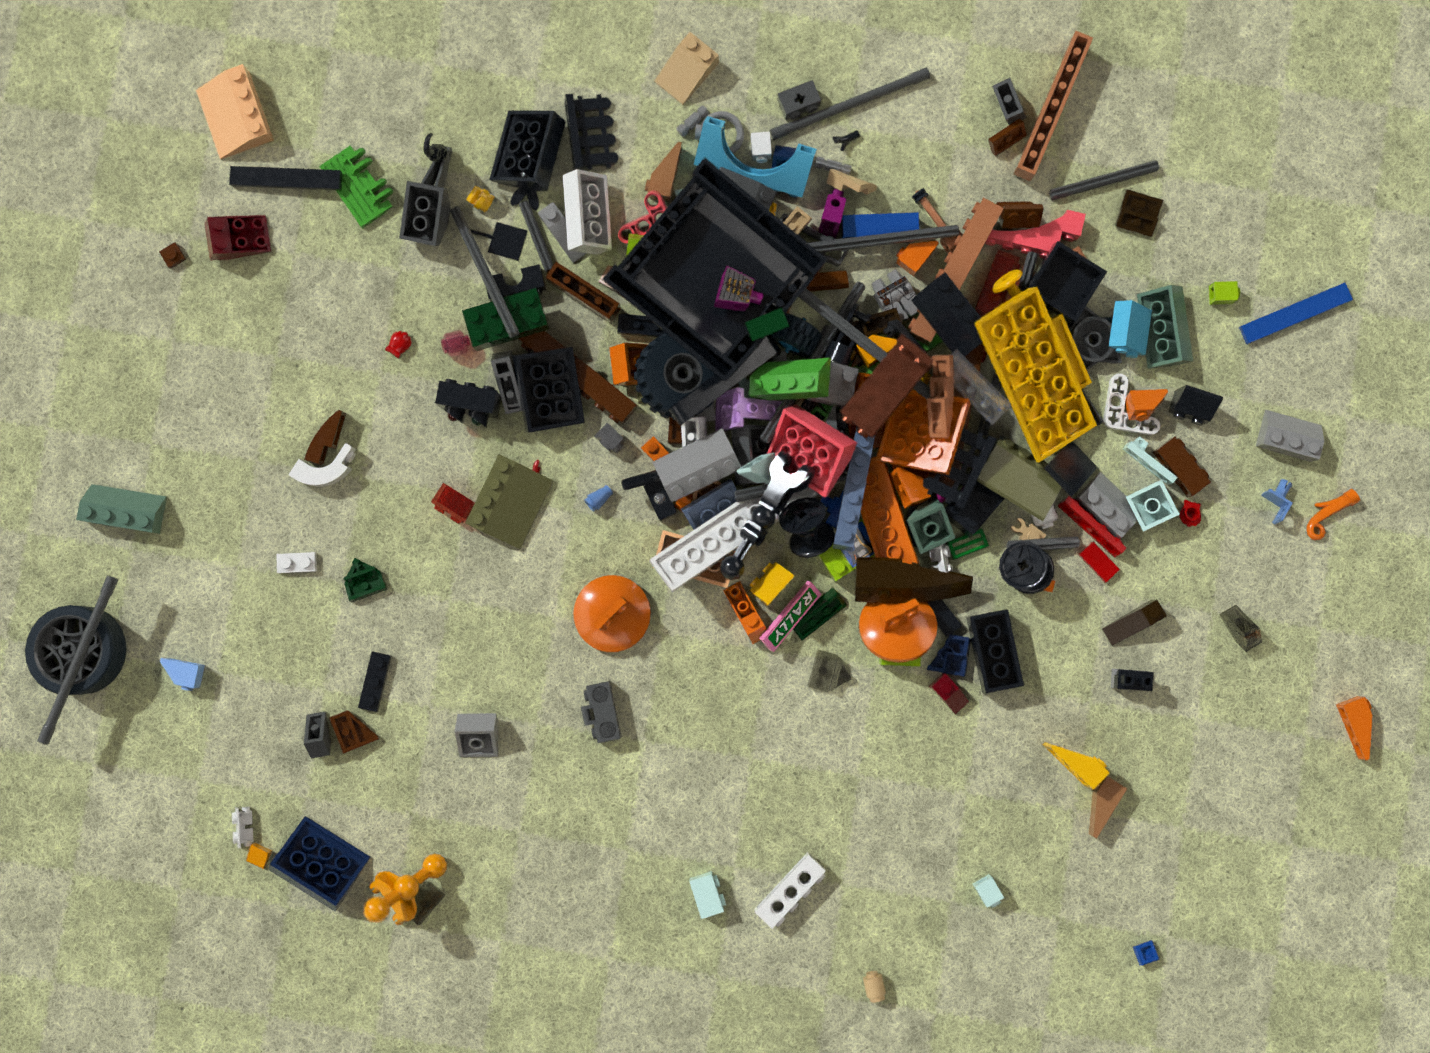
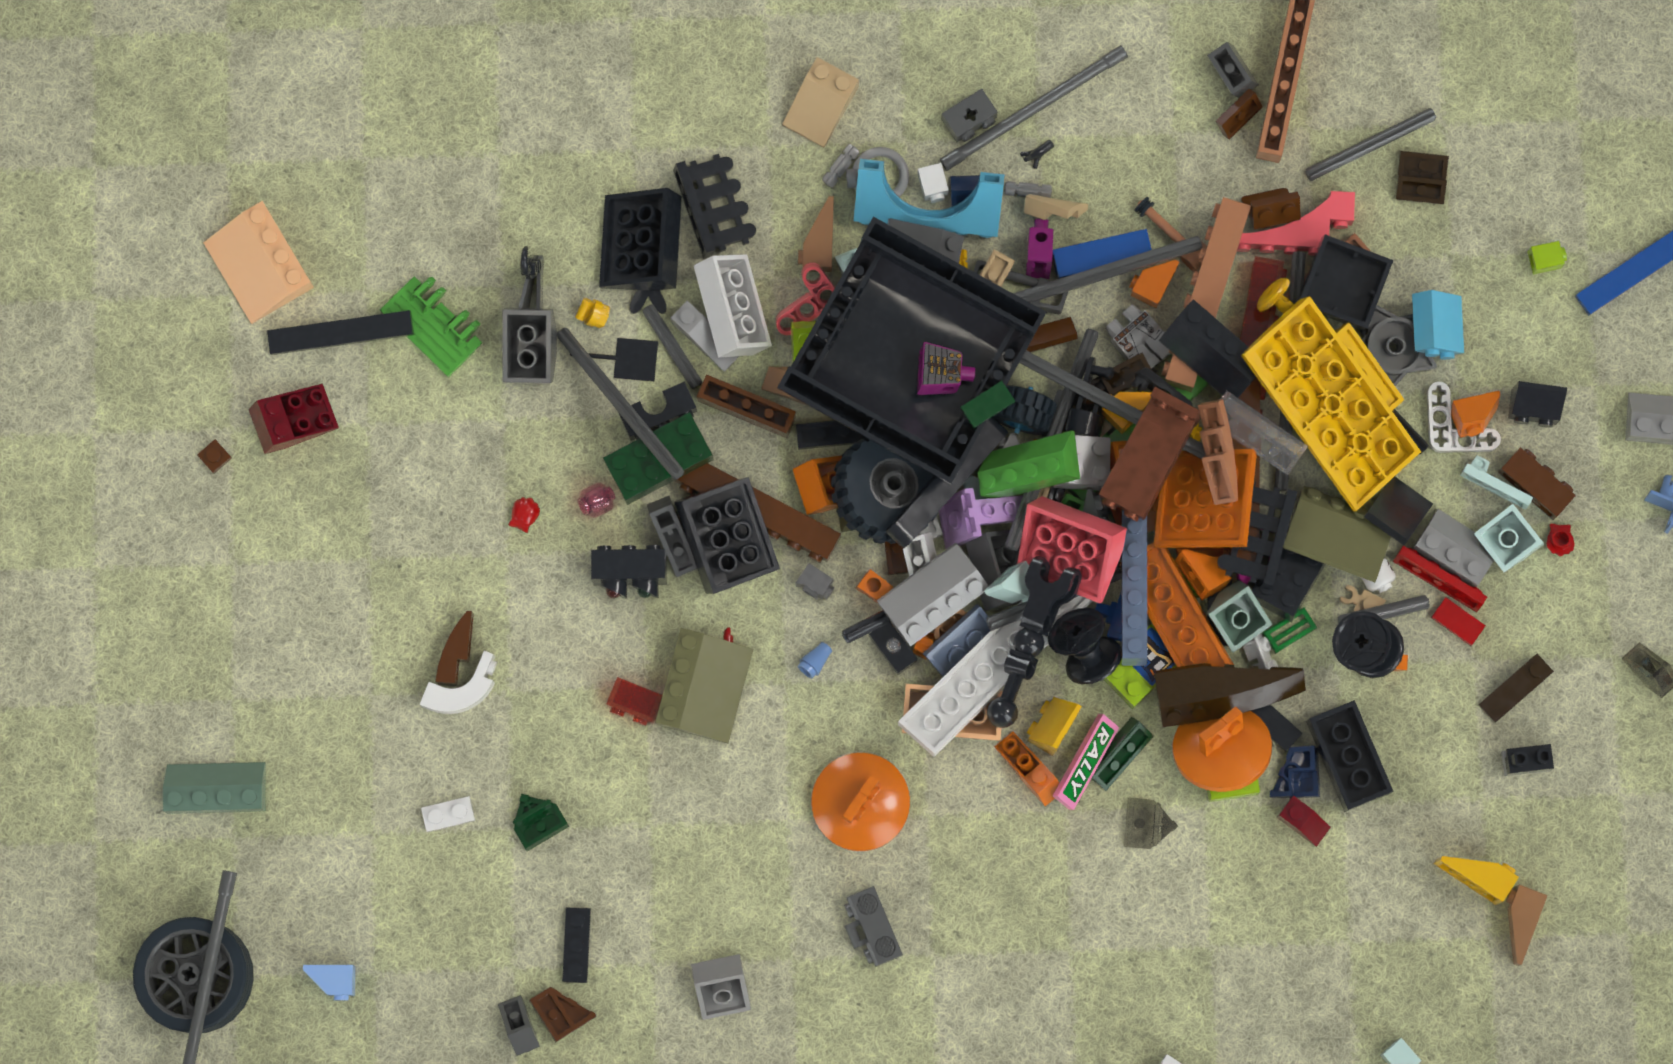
camera: 15 degrees left, 5 degrees down
(1169, 330) = (1486, 313): sand green slope -> none

